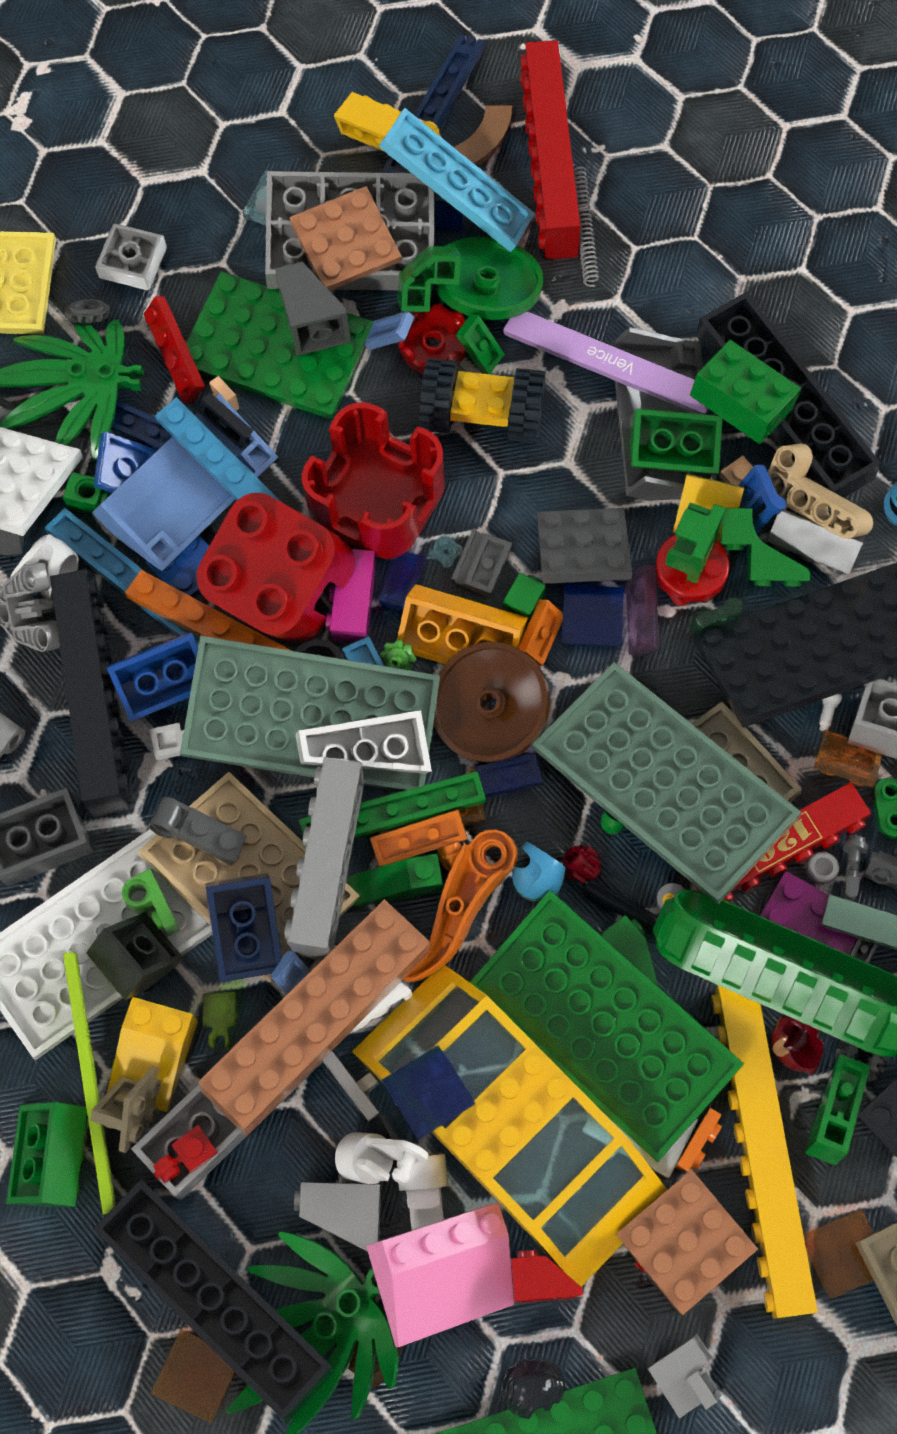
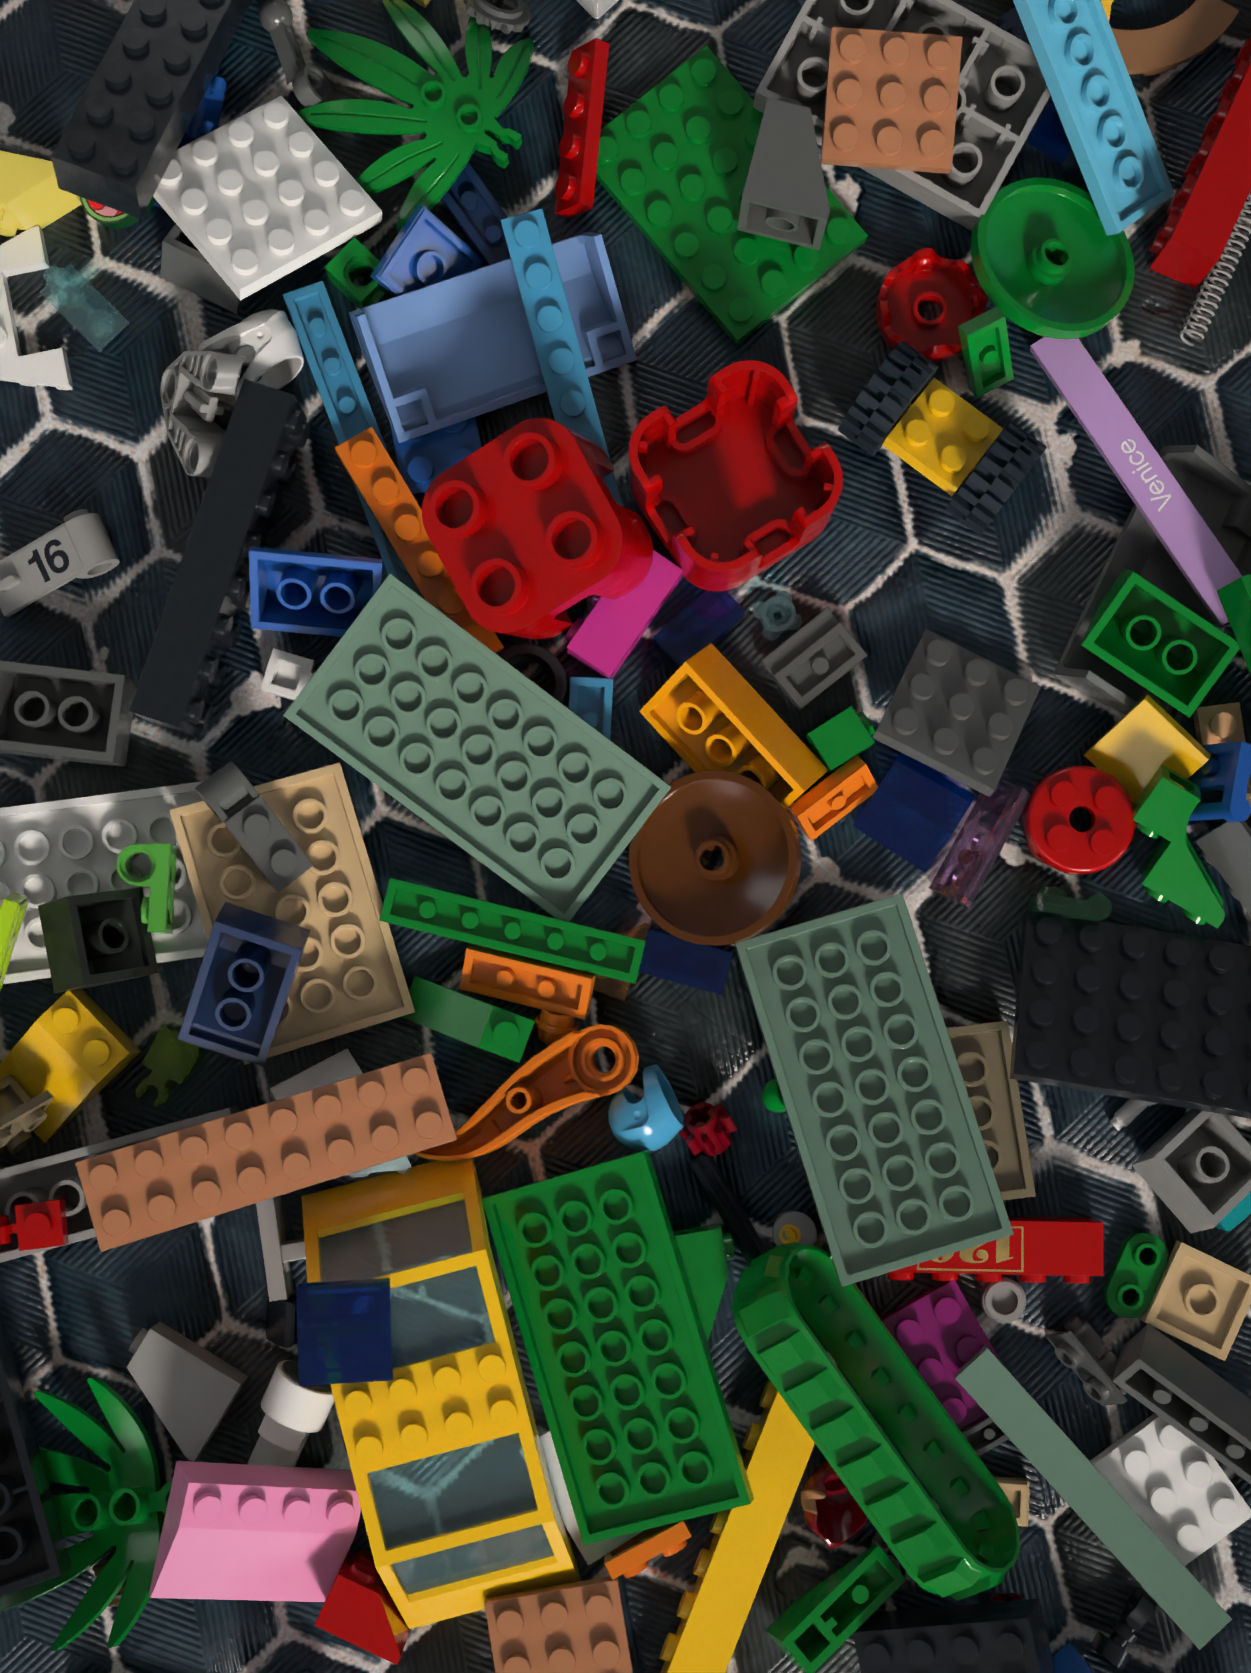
camera: 25 degrees right, 15 degrees up
(219, 386) = (611, 232): light nougat plate -> none
(225, 420) = (591, 275): black tile -> none
(289, 971) = (270, 1074): medium blue tile -> none
(326, 858) = (386, 963): light grey brick -> none
(370, 1157) = (245, 1346): white piece -> none
(376, 743) = (525, 836): white wedge -> none
(389, 330) = (878, 263): medium blue tile -> none
(398, 655) = (636, 726): bright green plant -> none
(430, 267) = (981, 210): green brick -> none
(695, 539) = (1099, 802): green panel -> none
(846, 760) = (1116, 1190): clear orange plate -> none
(855, 847) = (1021, 1347): dark grey hinge -> none

